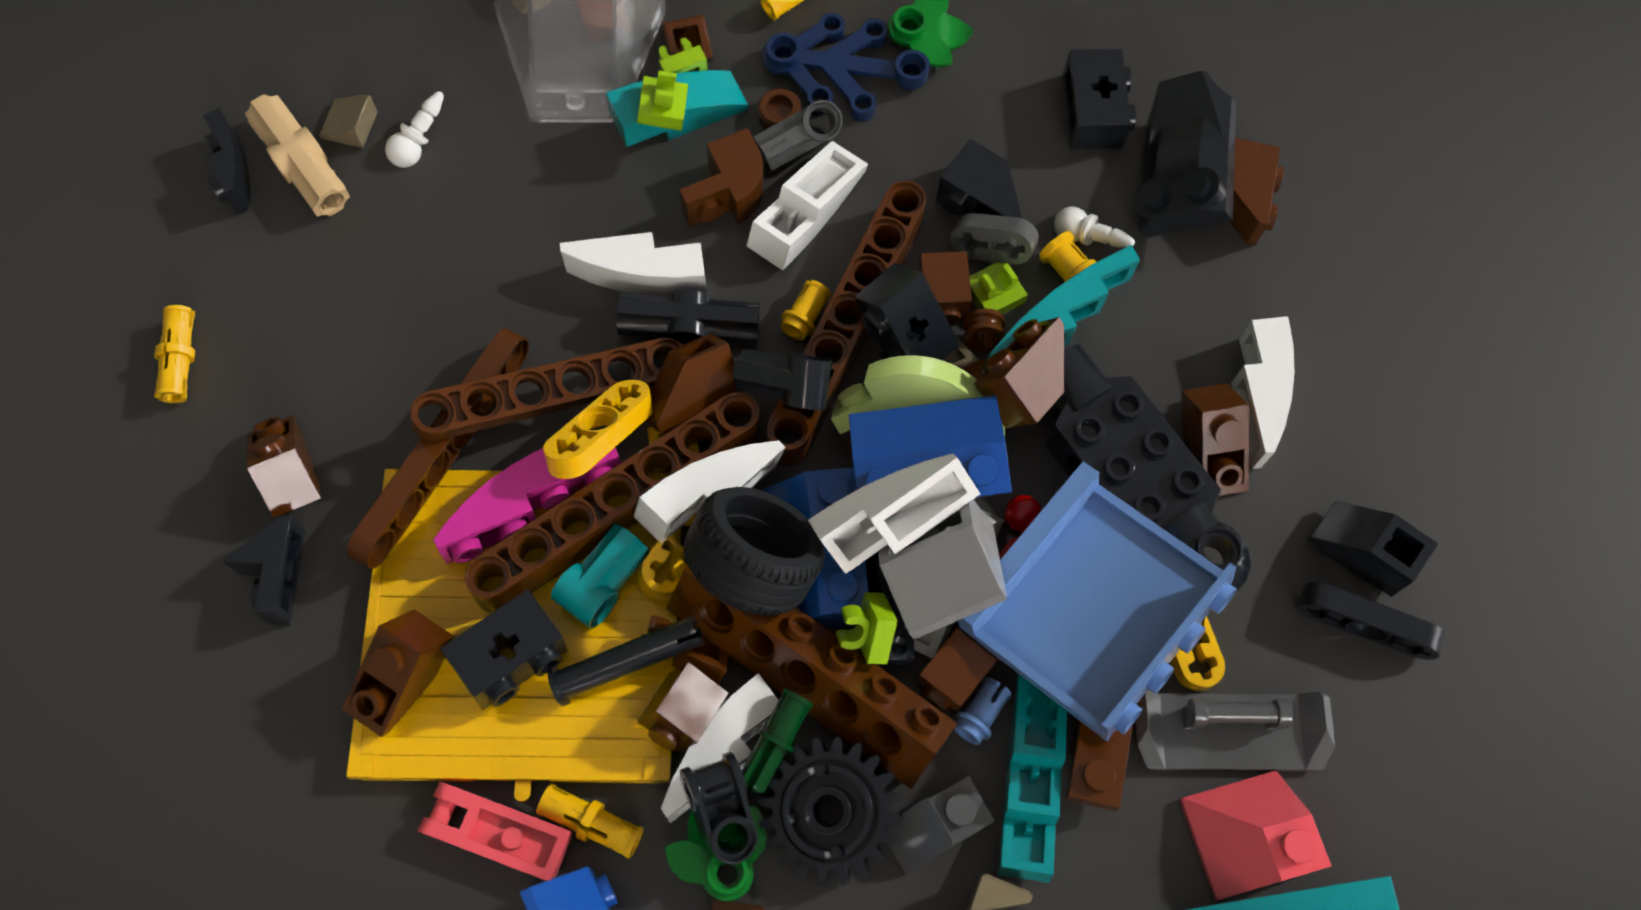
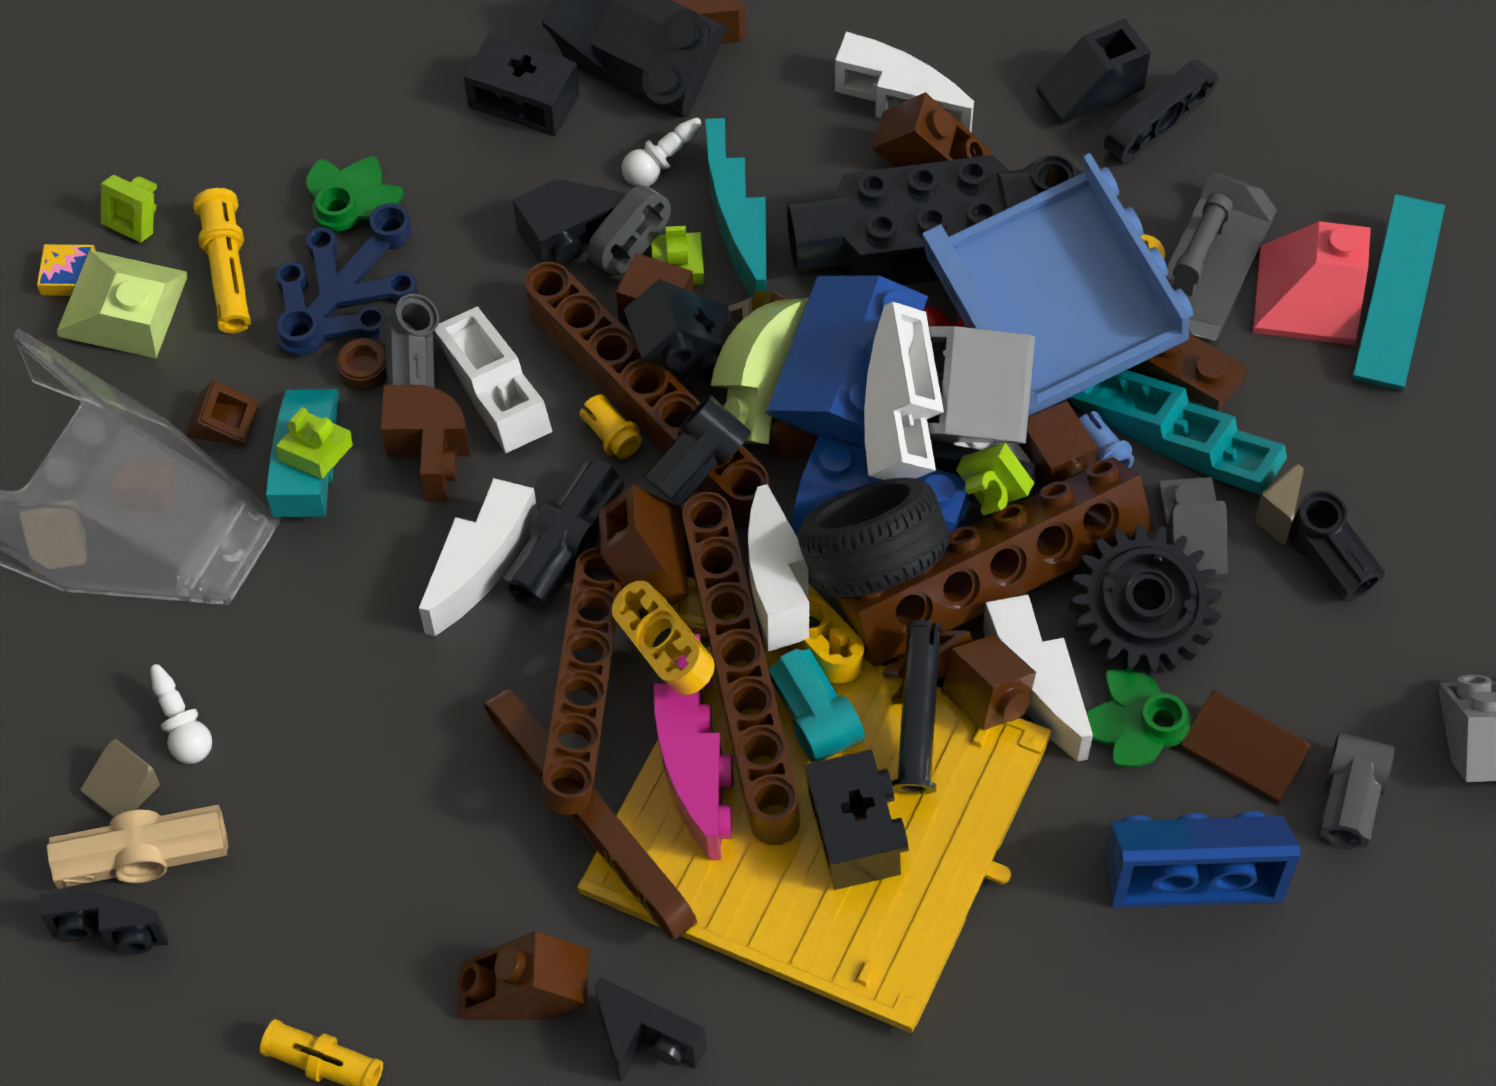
camera: 60 degrees left, 10 degrees down
(396, 670) = (829, 928): reddish brown slope -> none
(497, 832) = (1031, 910): coral plate -> none
(590, 821) = (1057, 822): yellow pin -> none
(686, 61) = (262, 426): lime tile -> none
(717, 799) = (1111, 680): black piece -> none
(775, 740) = (1061, 610): dark green axle -> none
(983, 329) = (720, 280): reddish brown bush -> none
(1027, 373) = (799, 245): slope -> none
(1065, 256) = (686, 182): yellow bush -> none

